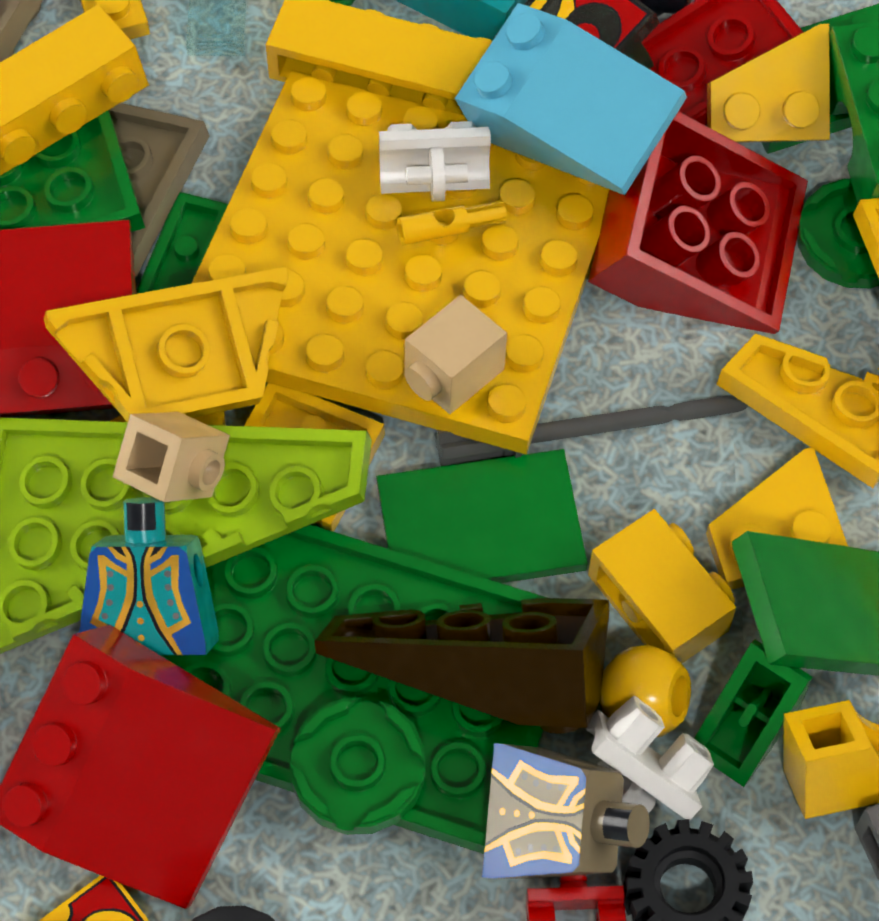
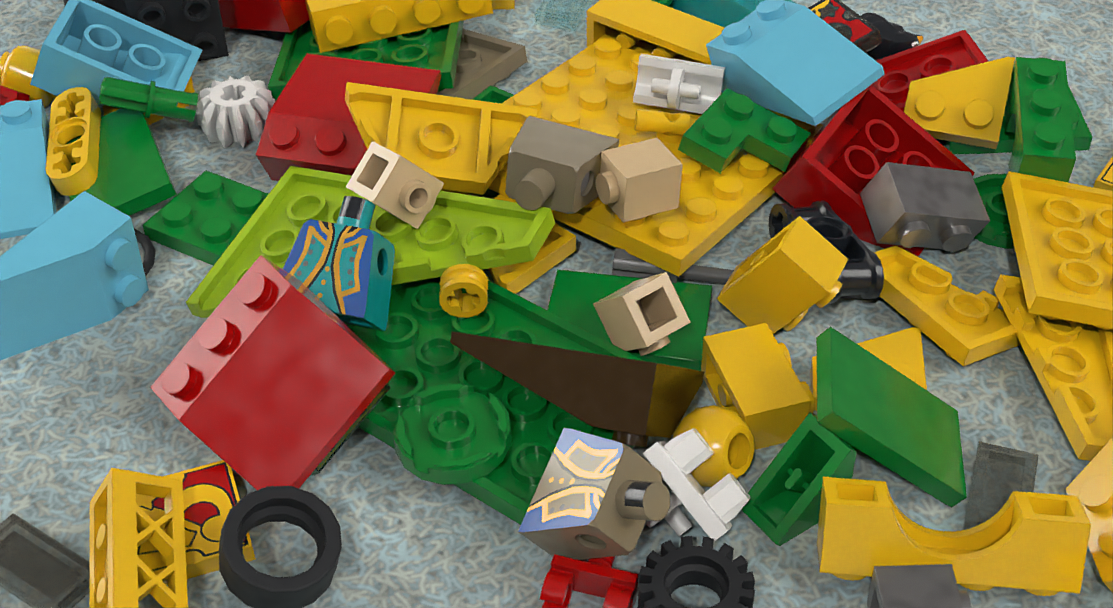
camera: 20 degrees right, 20 degrees down
(294, 563) = (463, 304): none -> yellow bush
(346, 358) = (555, 165): none -> dark tan torso
(513, 538) = (642, 314): none -> tan brick
(535, 208) = (738, 124): none -> green plate
(655, 442) = (784, 278): none -> yellow brick
(680, 369) = (863, 270): none -> black piece
(778, 277) = (924, 207): none -> flat silver brick

